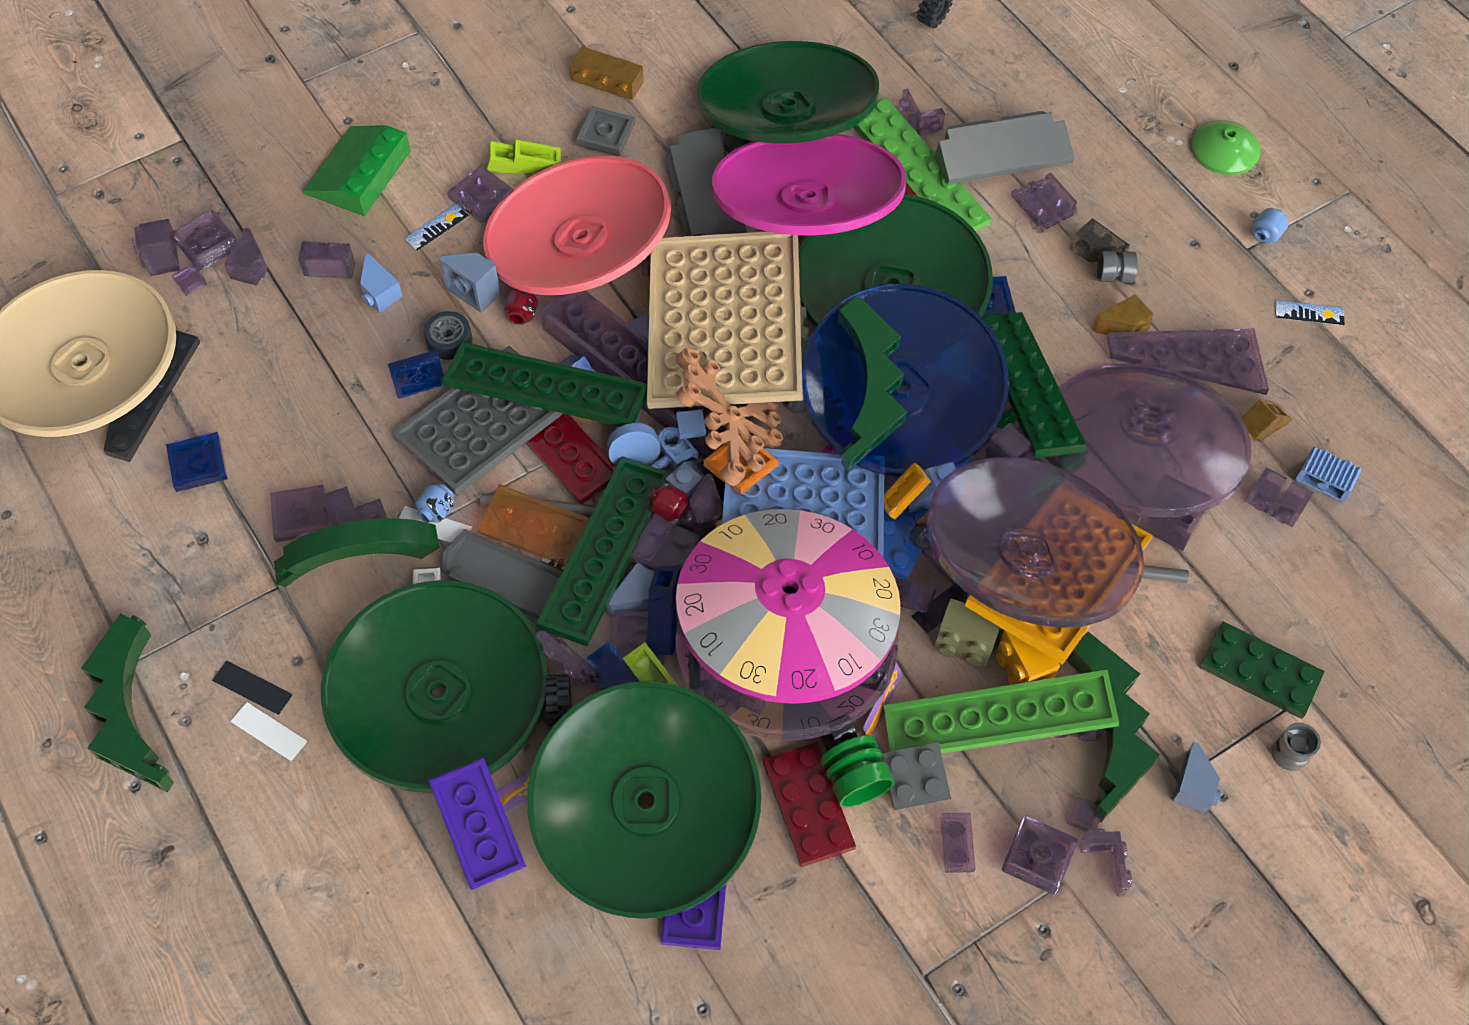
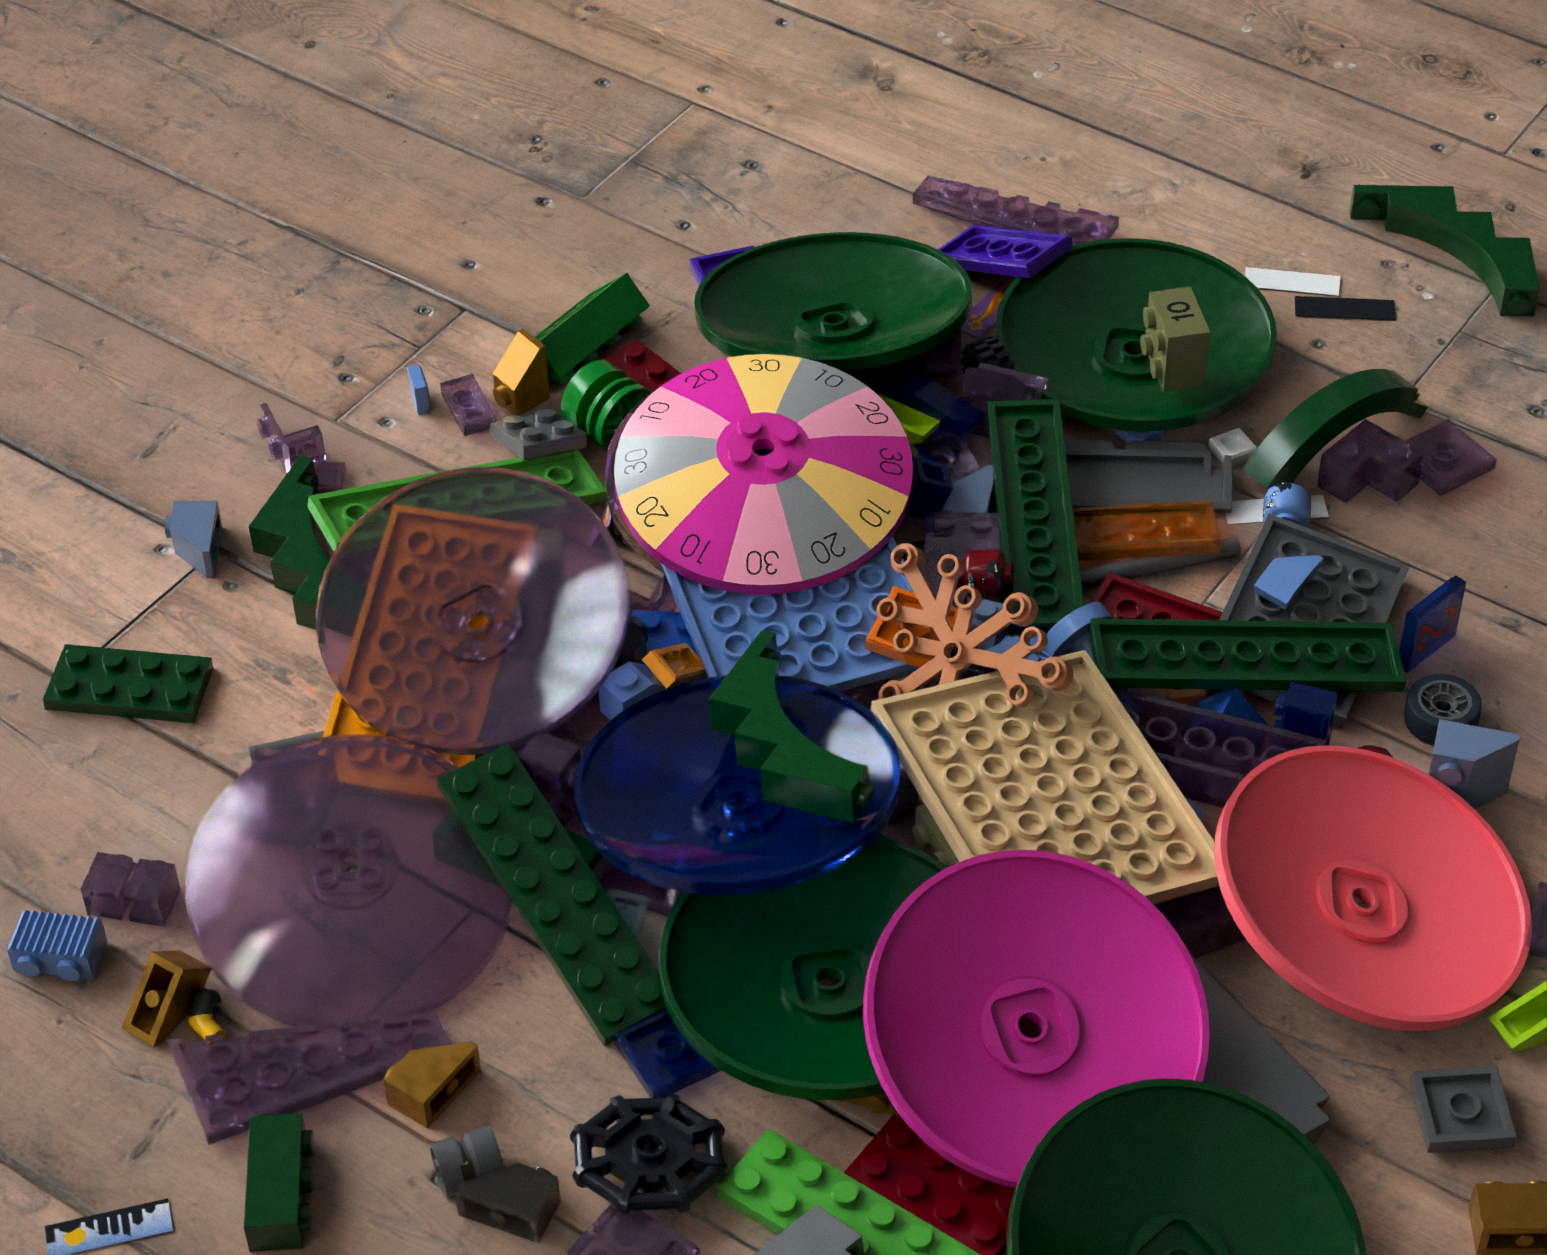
camera: 160 degrees right, 15 degrees down
(419, 869) = (987, 208): none -> clear purple wing
(429, 618) = (1176, 339): none -> olive brick
(480, 429) = (1286, 577): none -> medium blue slope
(539, 336) = (1306, 711): none -> clear blue brick
(847, 889) = (589, 324): none -> green slope
(911, 840) = (522, 375): none -> pearl gold slope
(993, 872) = (419, 389): none -> medium blue tile
(1022, 252) = (649, 1170): none -> black plate
(1056, 849) = (369, 415): clear purple brick -> none
(1218, 293) = (278, 1182): none -> dark green brick
(1243, 400) = (201, 1013): none -> arm
(1296, 746) = (75, 596): dark grey wheel -> none

